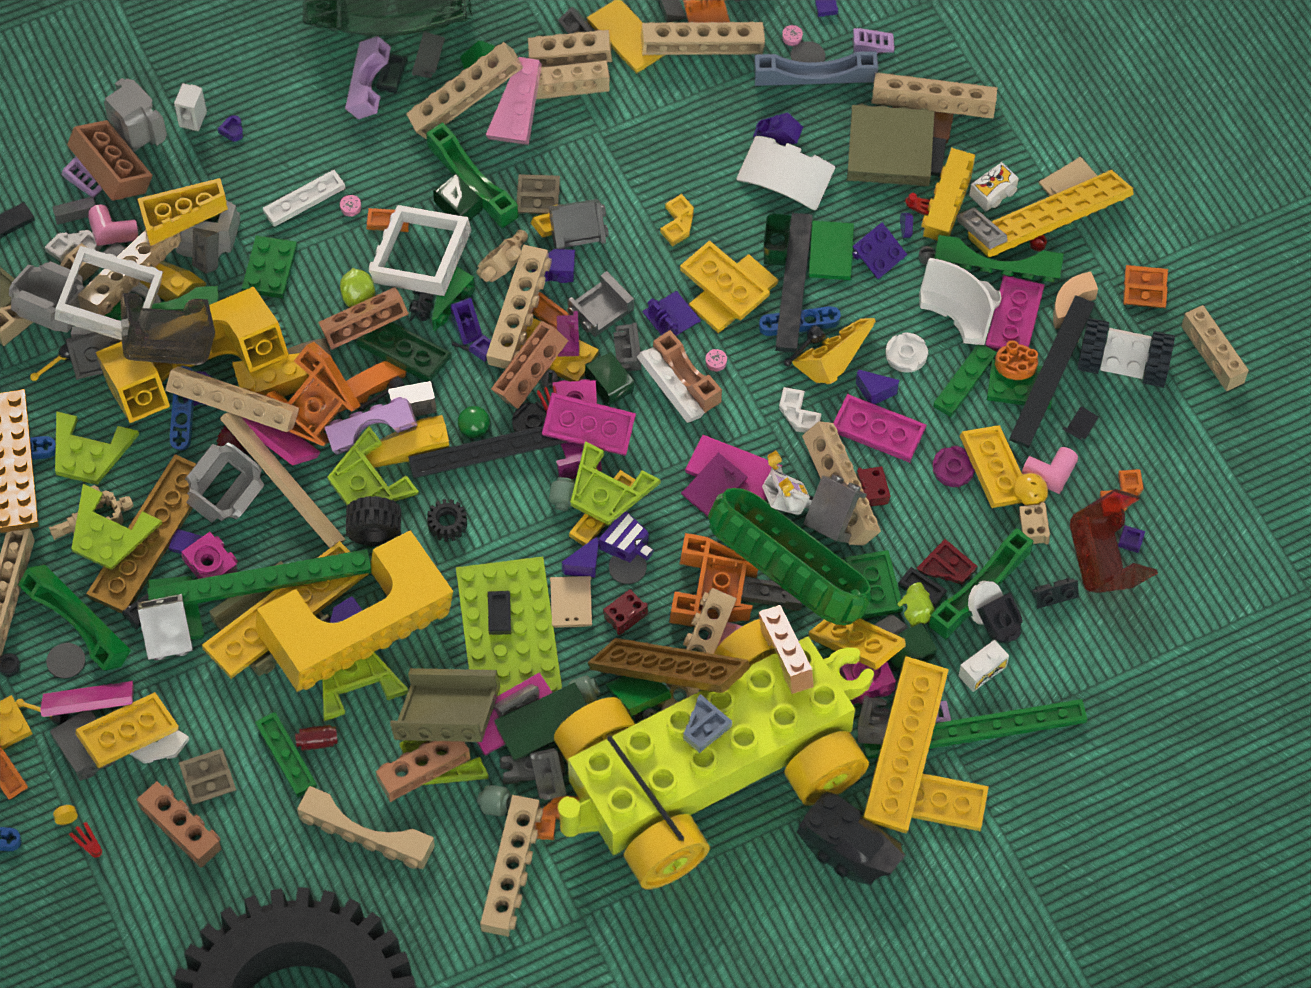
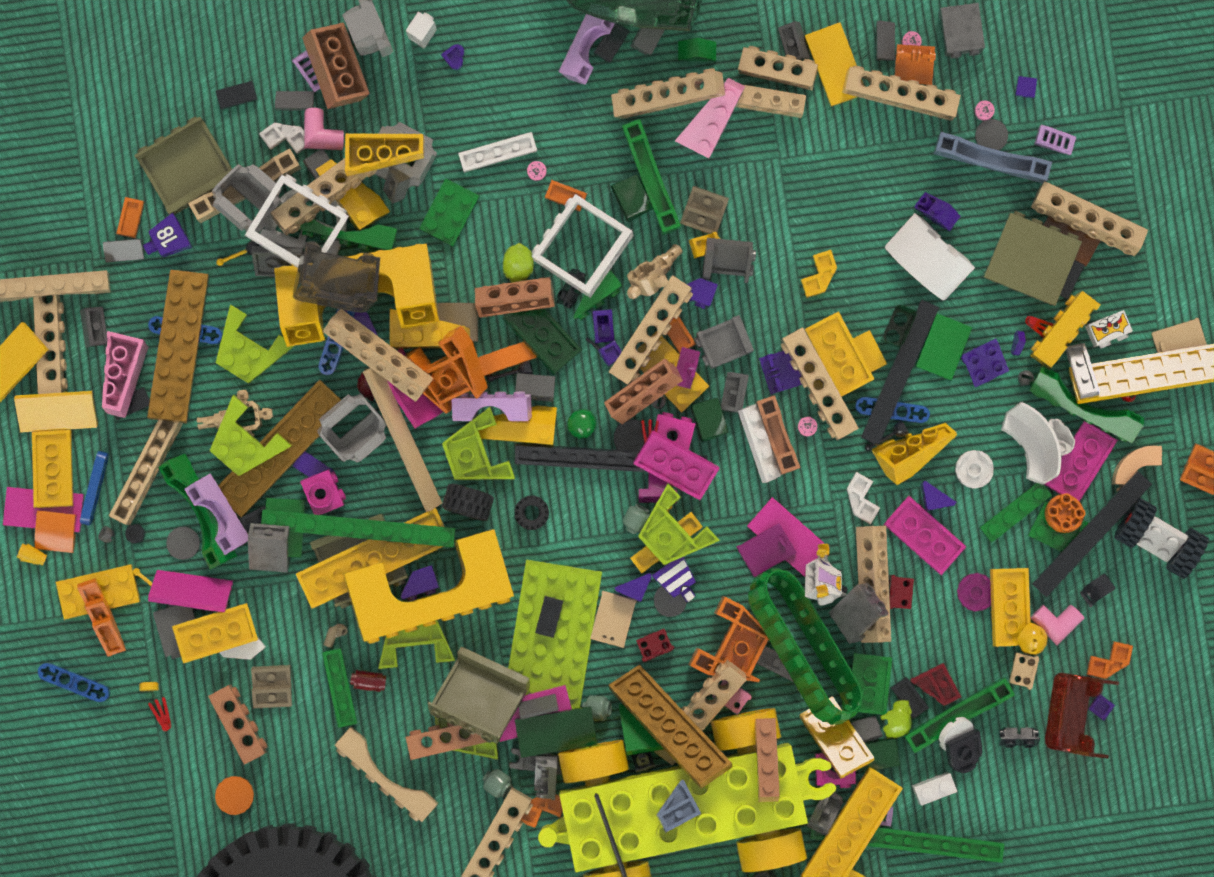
camera: 15 degrees right, 25 degrees up
(79, 591) = (230, 530): none -> lavender arch
(196, 903) = (234, 795): none -> orange tile
(263, 701) = (335, 632): none -> dark tan arm
(695, 289) = (800, 338): none -> tan brick

